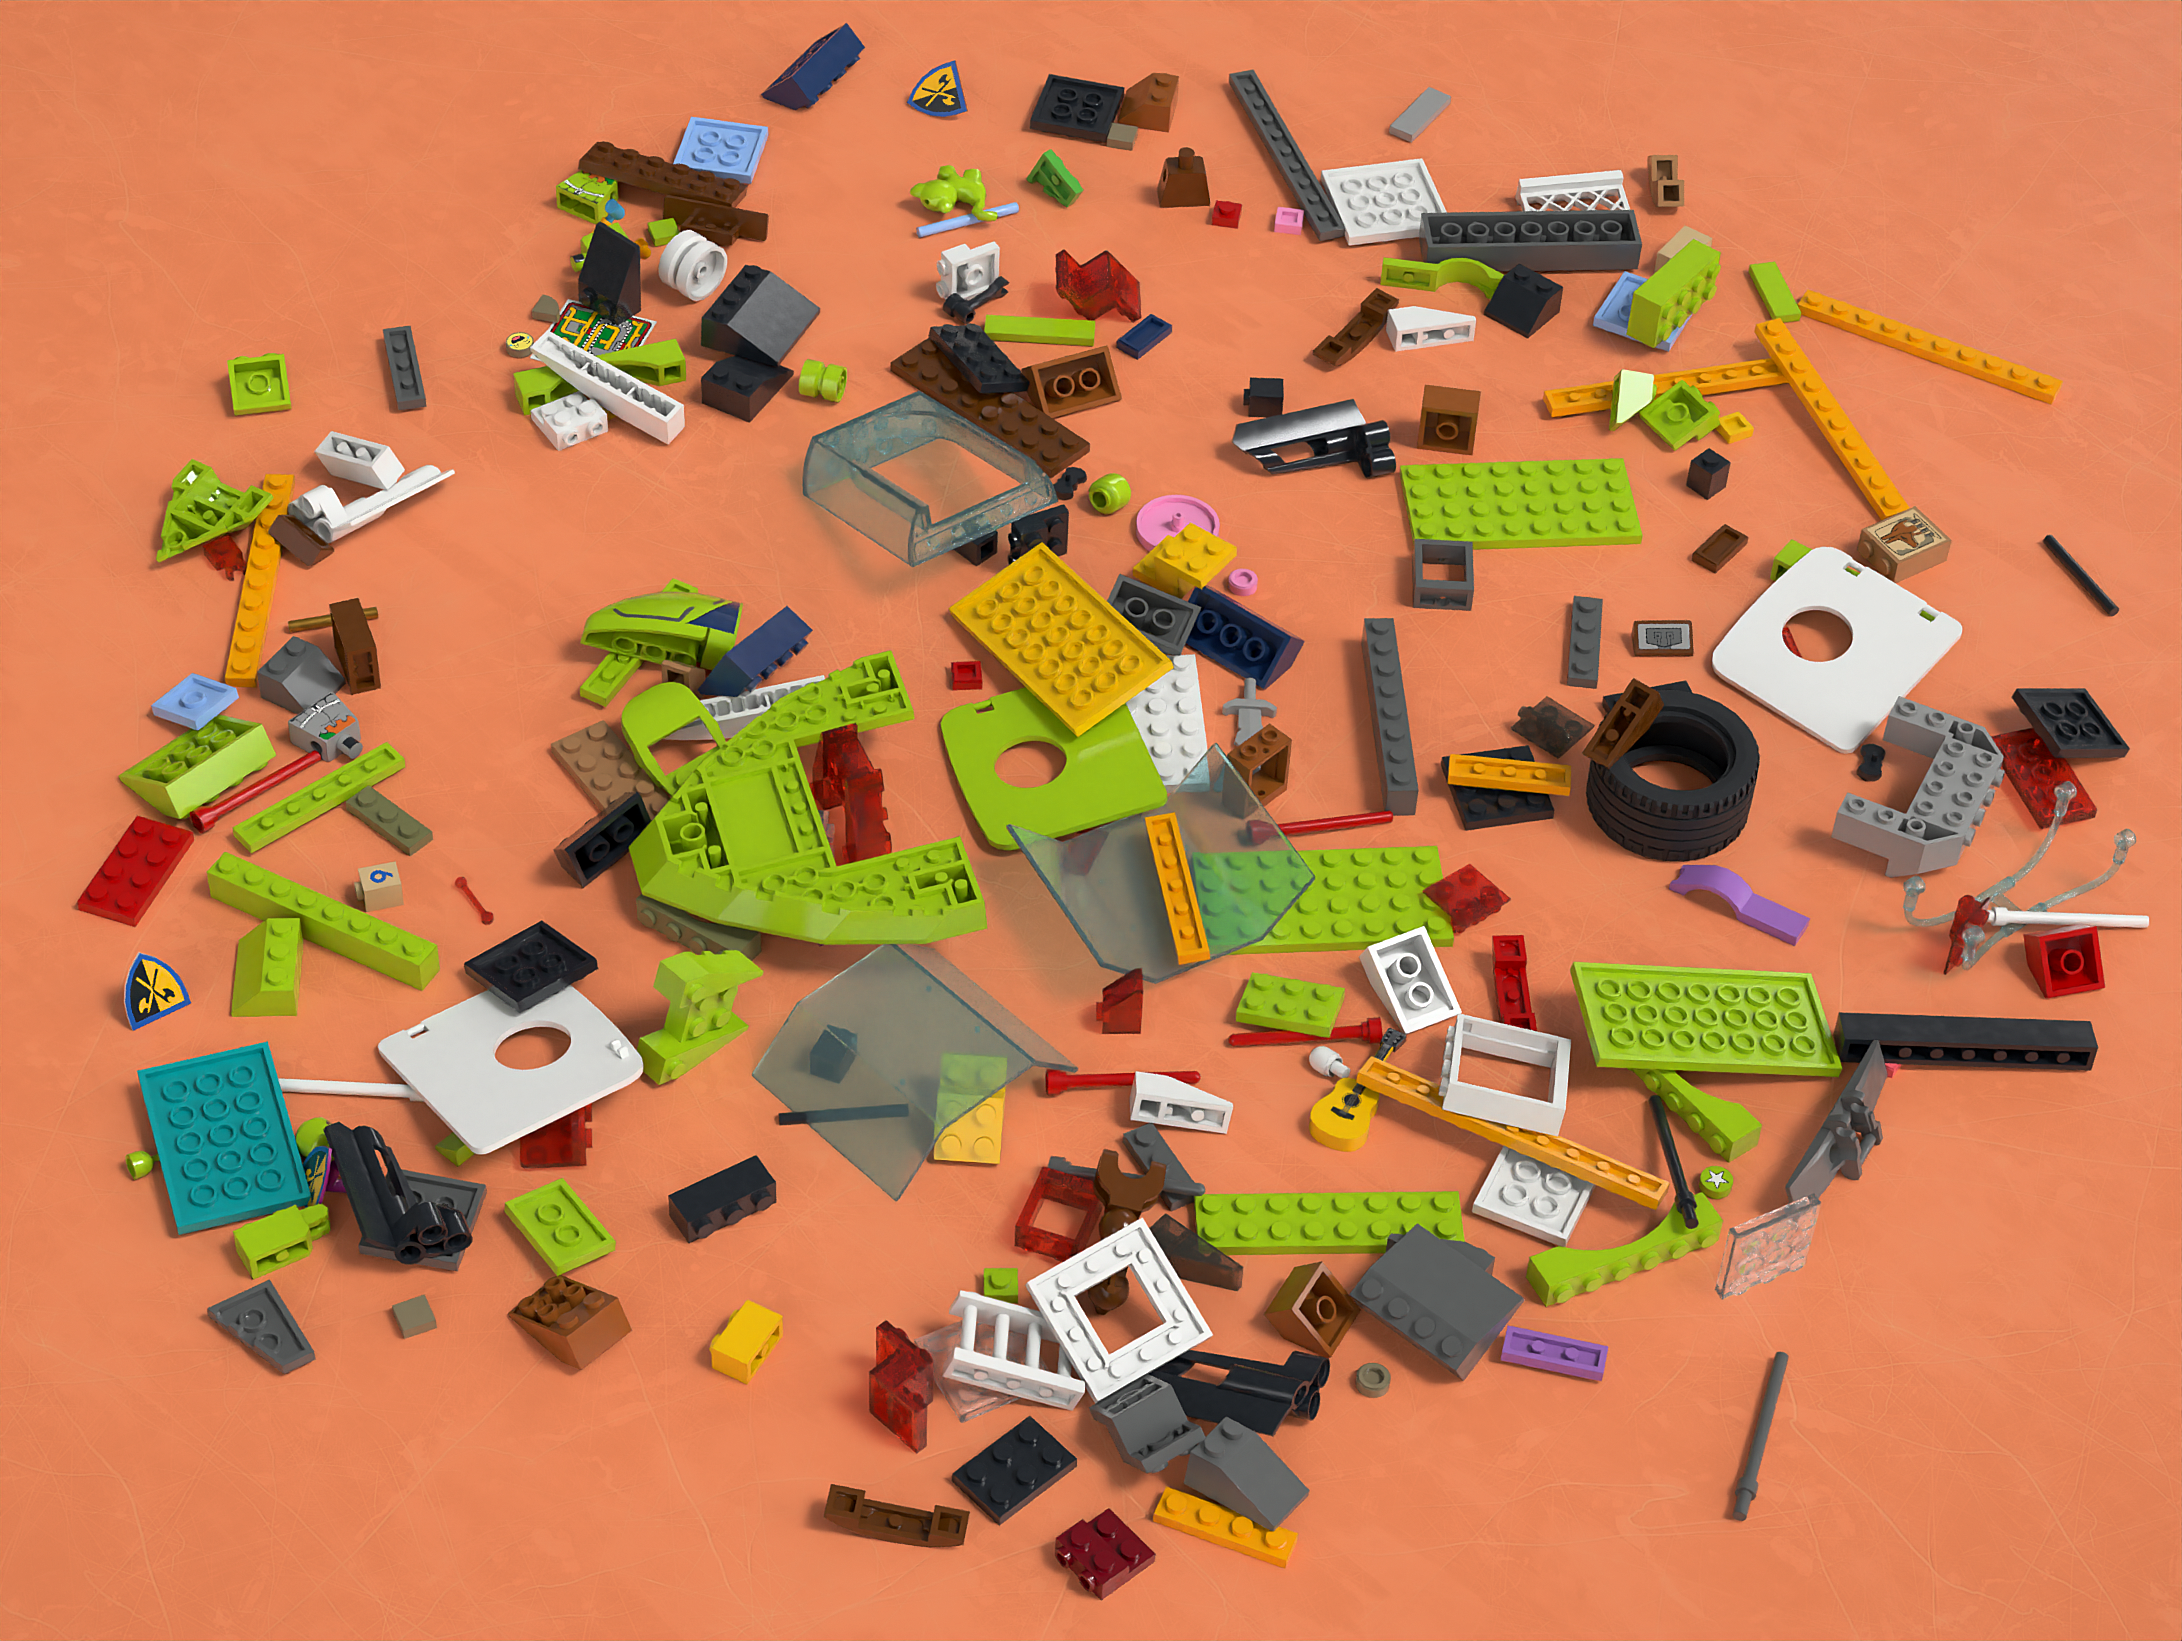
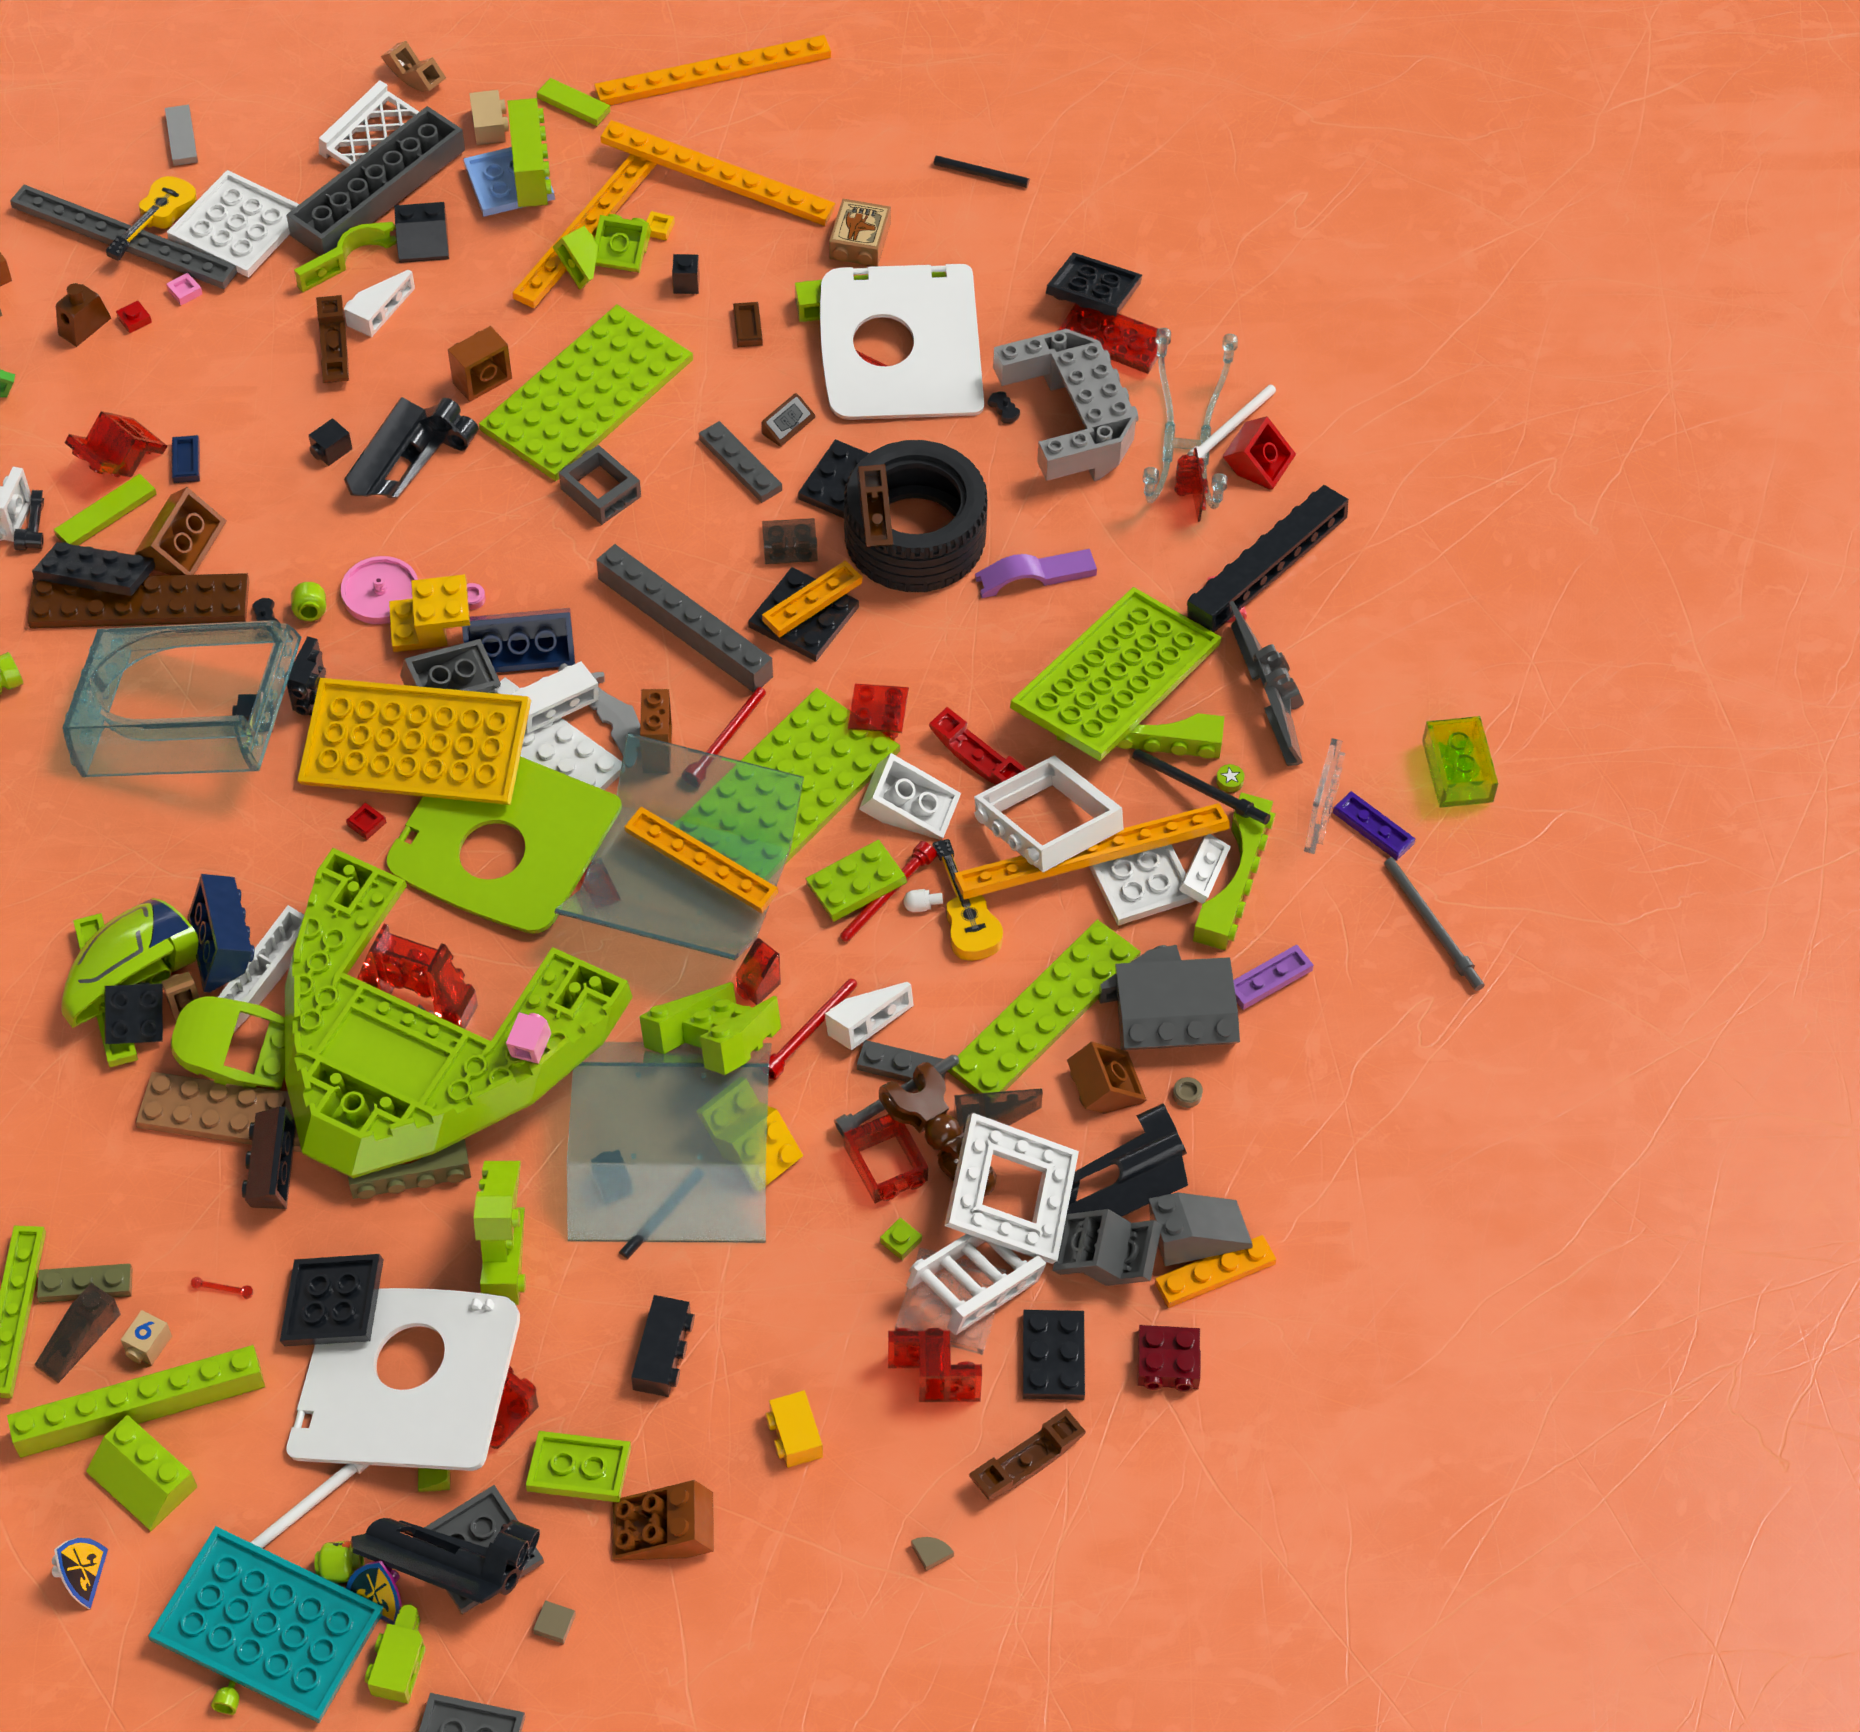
camera: 45 degrees left, 10 degrees up
(345, 844) = (78, 1331): none -> clear smoke slope
(629, 663) = (134, 1013): none -> black hinge
(740, 1520) = (931, 1551): none -> dark tan tile
(860, 880) = (528, 1037): none -> bright pink brick
(1032, 1005) = (713, 1023): none -> lime wedge
(1208, 690) = (559, 695): none -> white brick
(1332, 152) = (165, 203): none -> yellow piece
(1598, 1224) = (1204, 868): none -> white plate
(1804, 1319) = (1374, 825): none -> dark purple tile
(1943, 1327) = (1460, 761): none -> clear neon green brick

